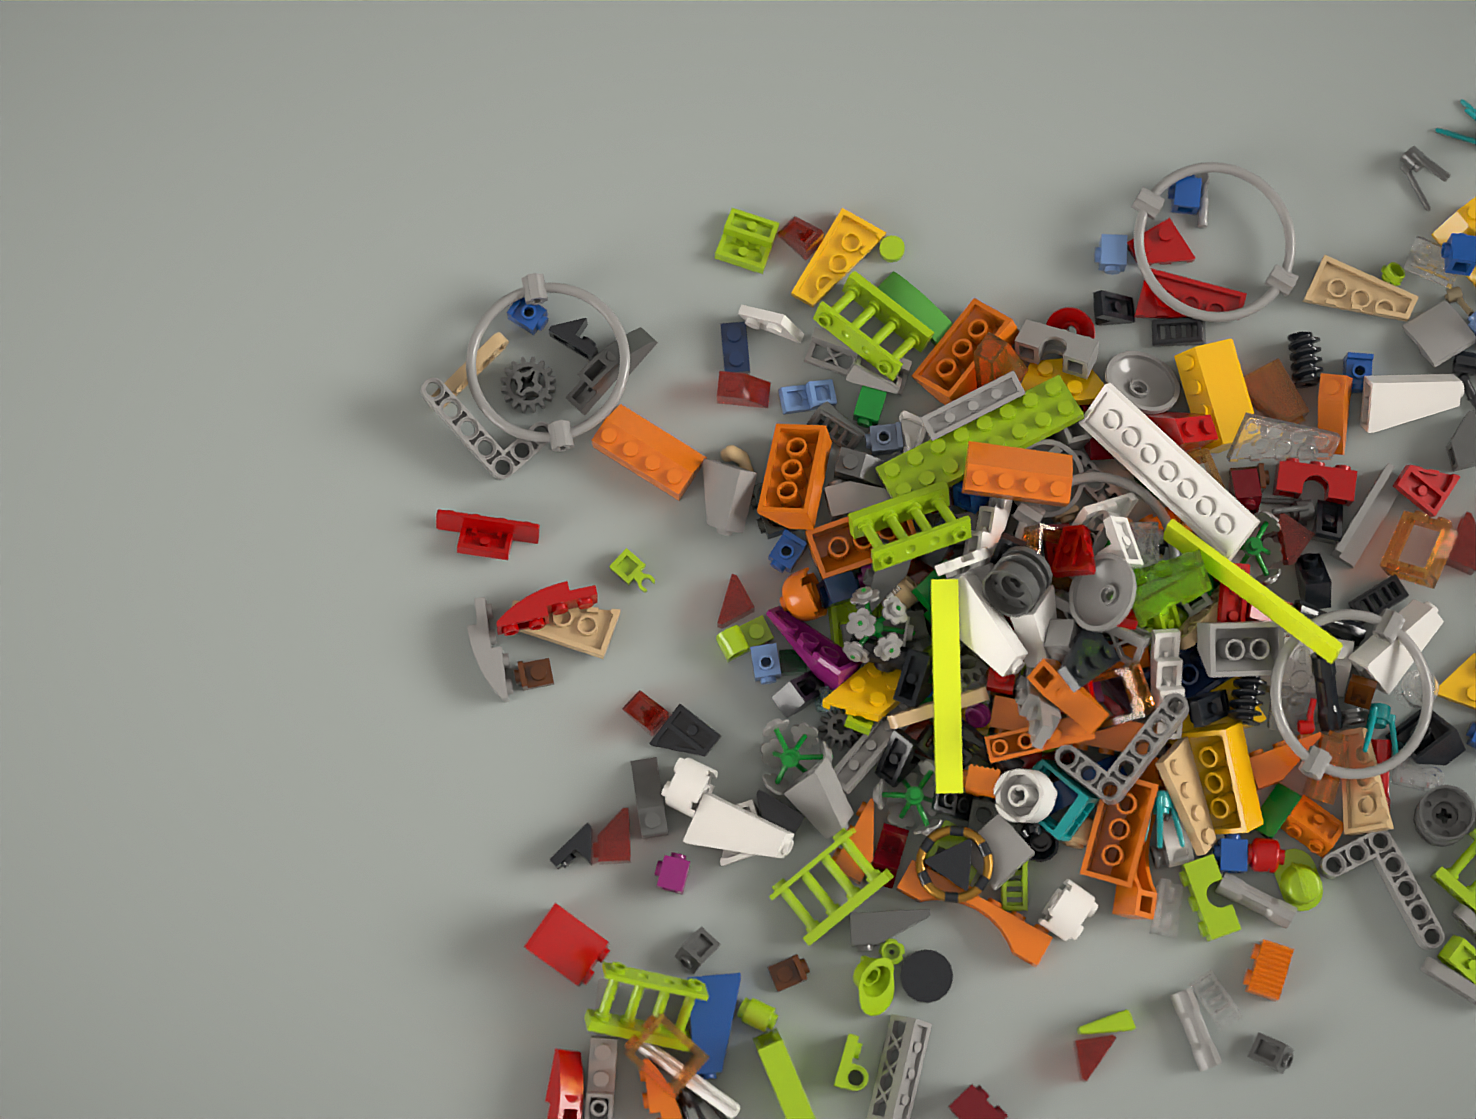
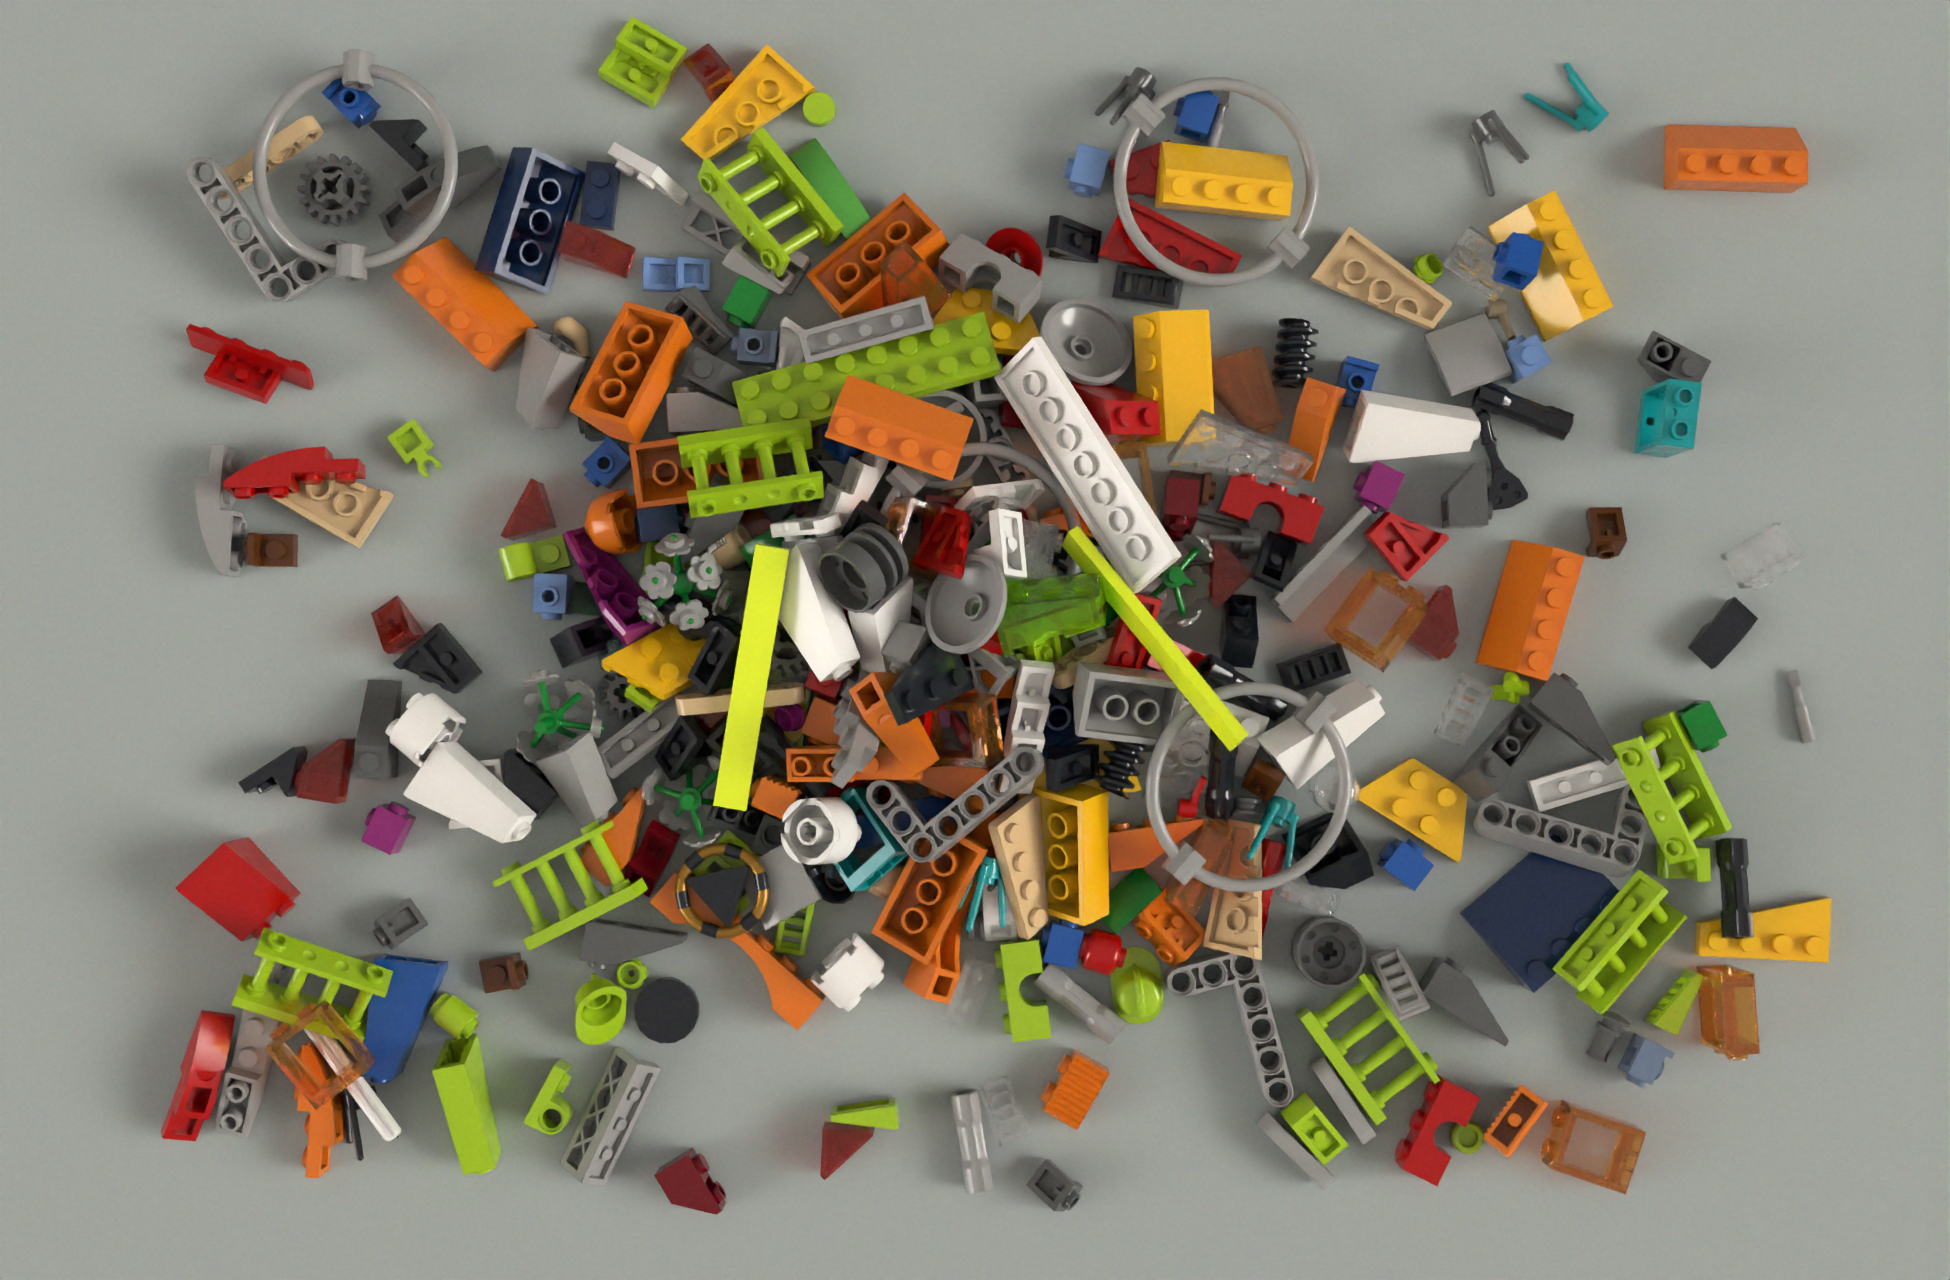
camera: 10 degrees right, 10 degrees up
(686, 377) = (529, 219): none -> dark blue slope
(1134, 182) = (1134, 85): none -> dark grey plant
(1219, 241) = (1223, 181): none -> yellow slope
(1395, 448) = (1377, 487): none -> magenta brick

